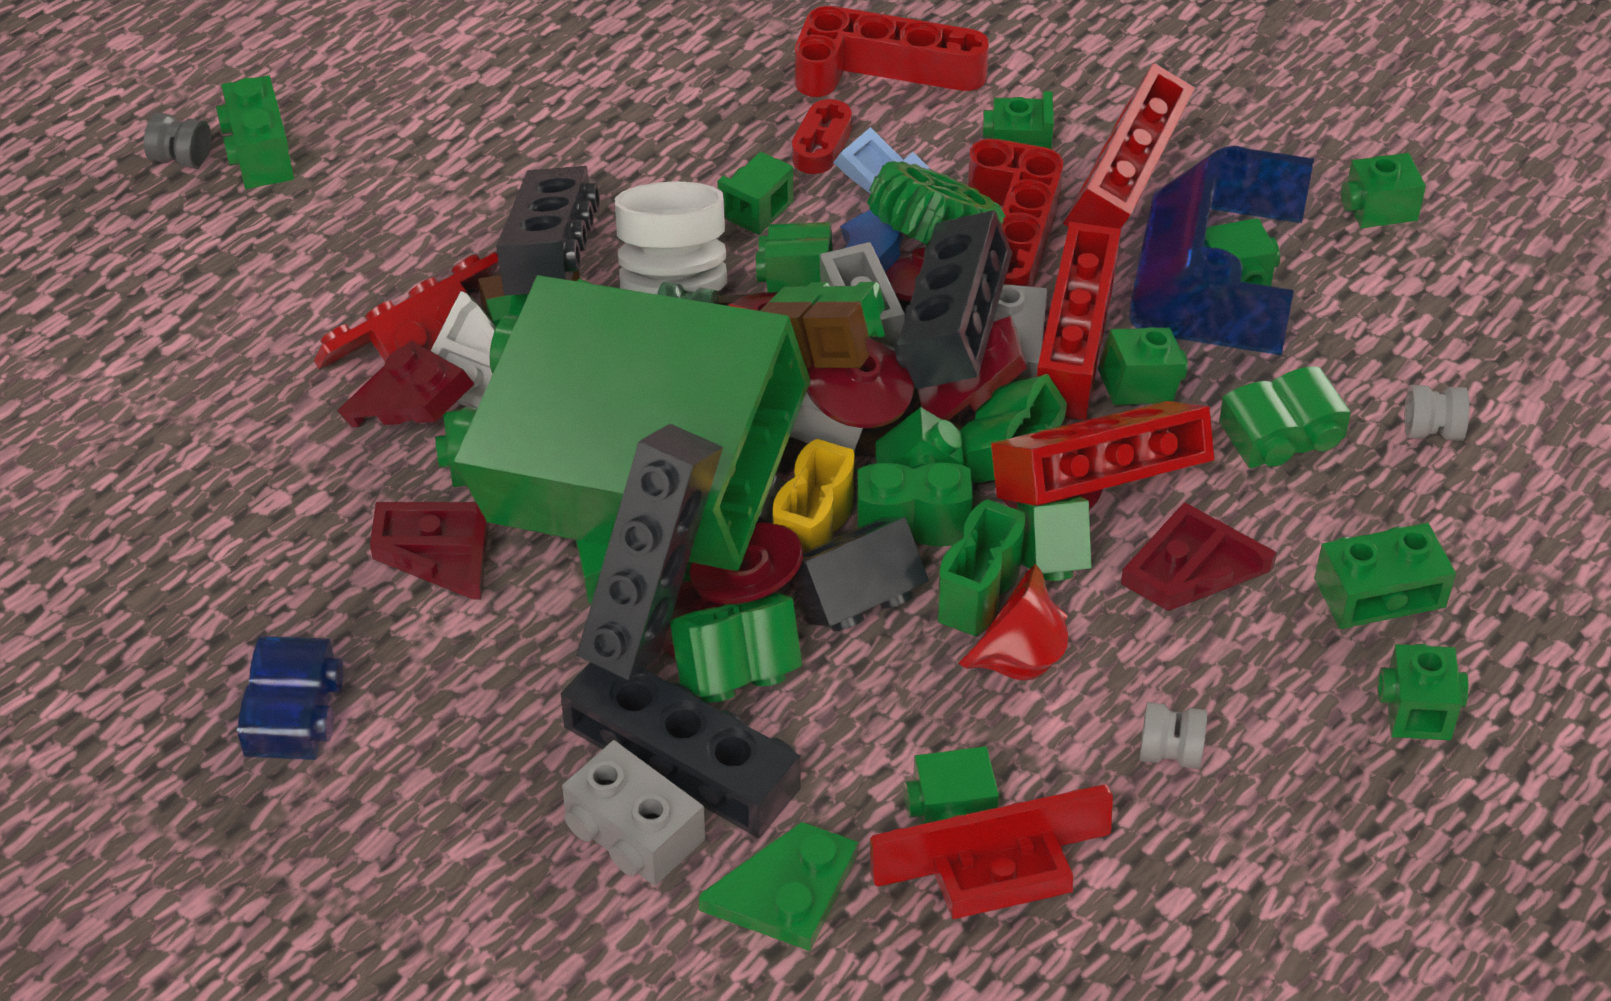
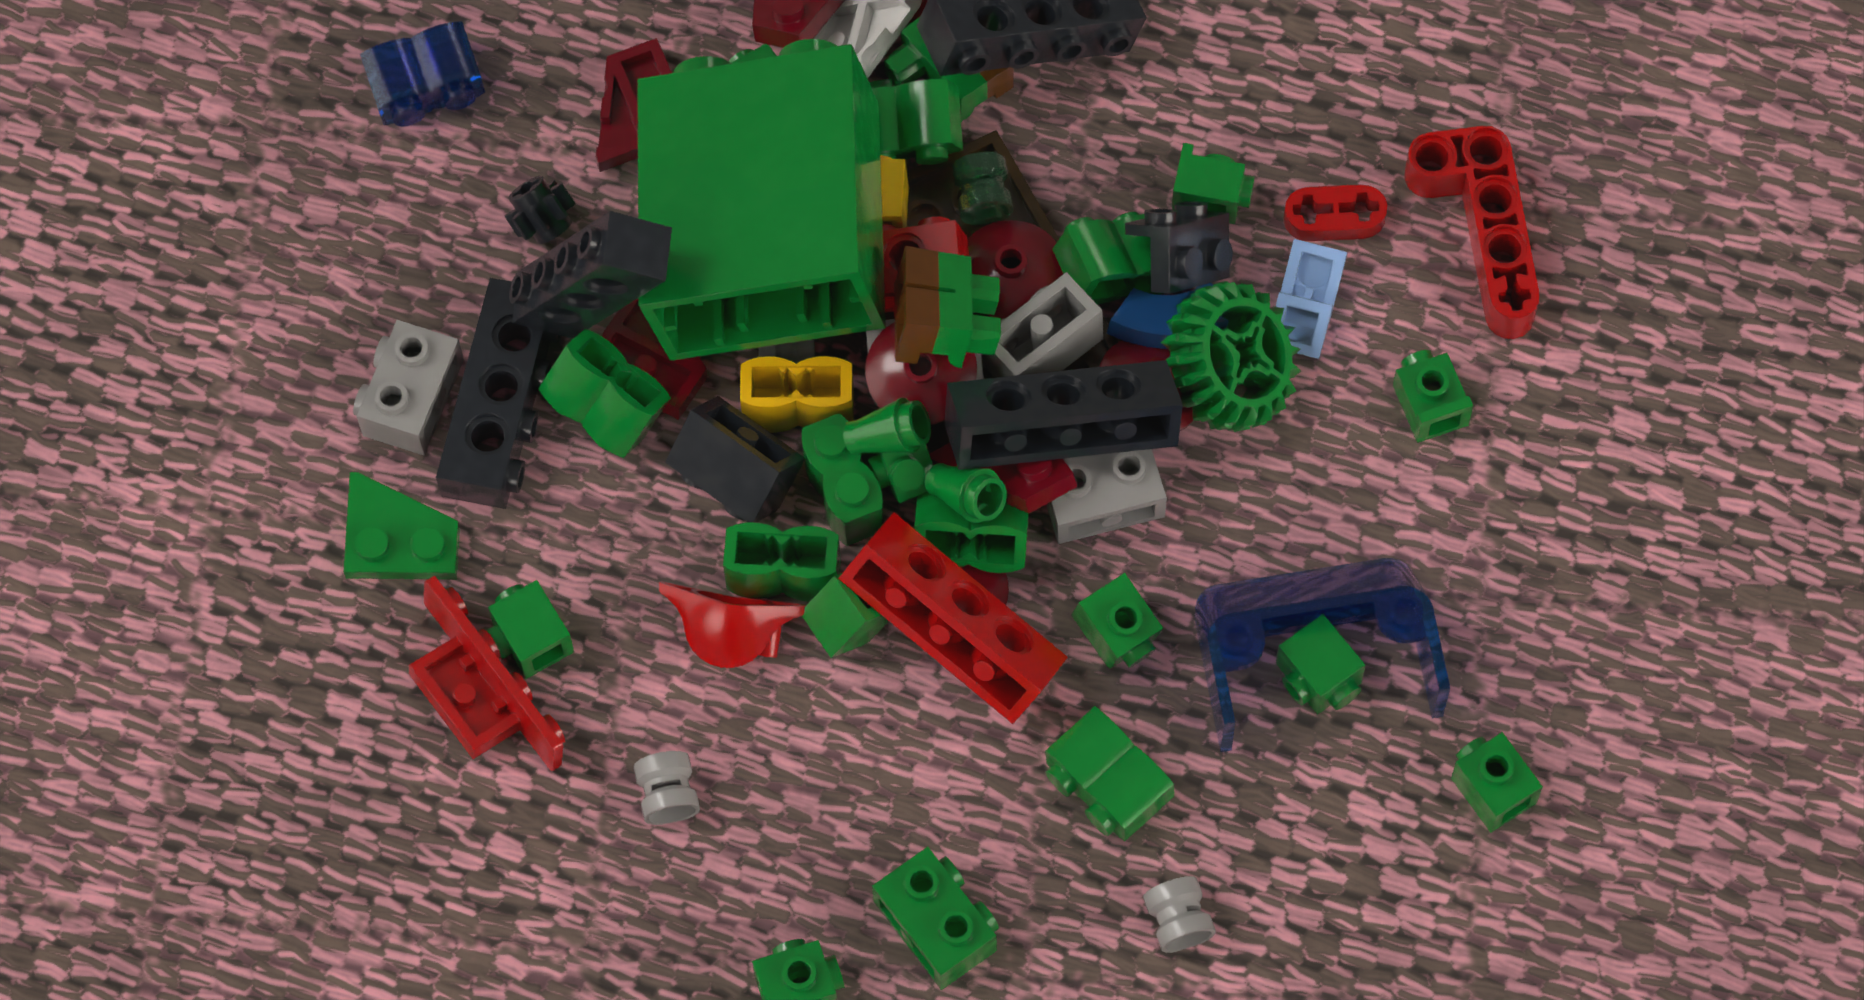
camera: 70 degrees right, 20 degrees up
(501, 644) = (540, 209): none -> black gear
(671, 236) = (1068, 136): white wheel -> none
(767, 565) = (683, 381): dark red dish -> none
(821, 200) = (1186, 245): none -> black bracket
(909, 416) = (891, 429): none -> green cone
(989, 394) = (972, 492): none -> green cone
(1029, 188) = (1268, 436): red beam -> none
(1079, 313) = (1146, 540): red brick -> none
(1131, 150) = (1418, 512): red brick -> none
(1194, 559) = (889, 744): dark red wing -> none

